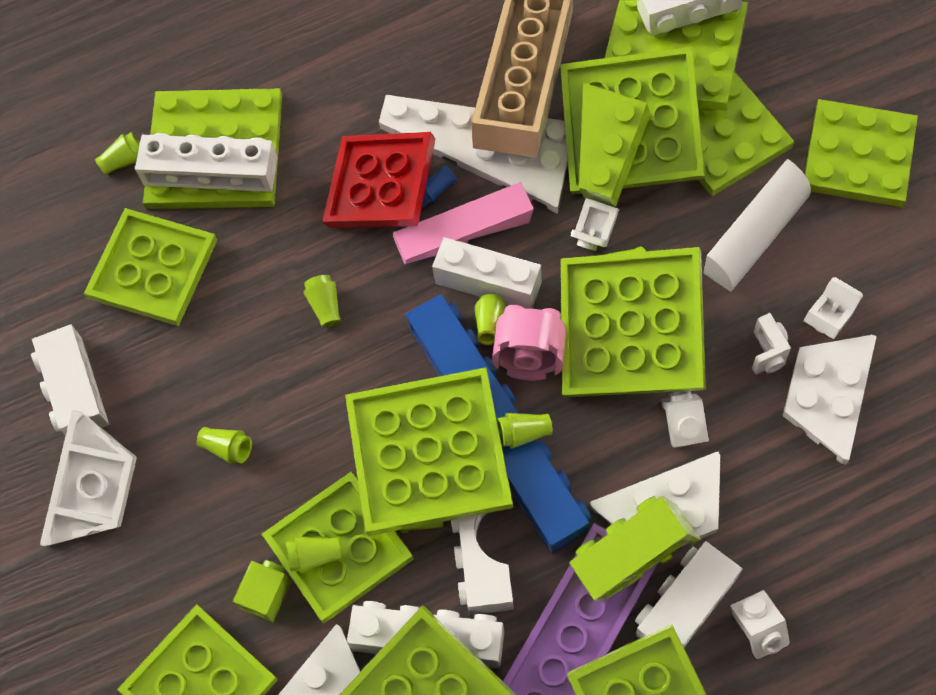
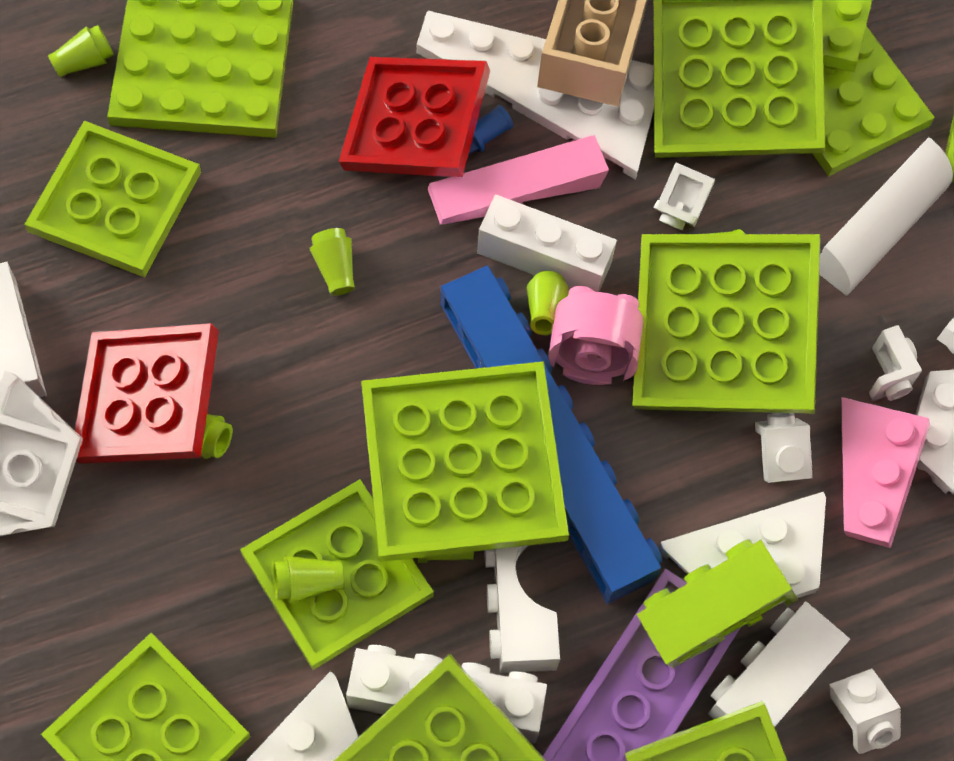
camera: 10 degrees left, 0 degrees up
(182, 418) = (146, 393): none -> plate
(206, 162) = (195, 72): white brick -> none
(262, 590) = (237, 621): lime brick -> none
(523, 428) = (585, 442): lime cone -> none
(609, 141) = (711, 93): lime wedge -> none
(761, 428) = (878, 467): none -> bright pink wing

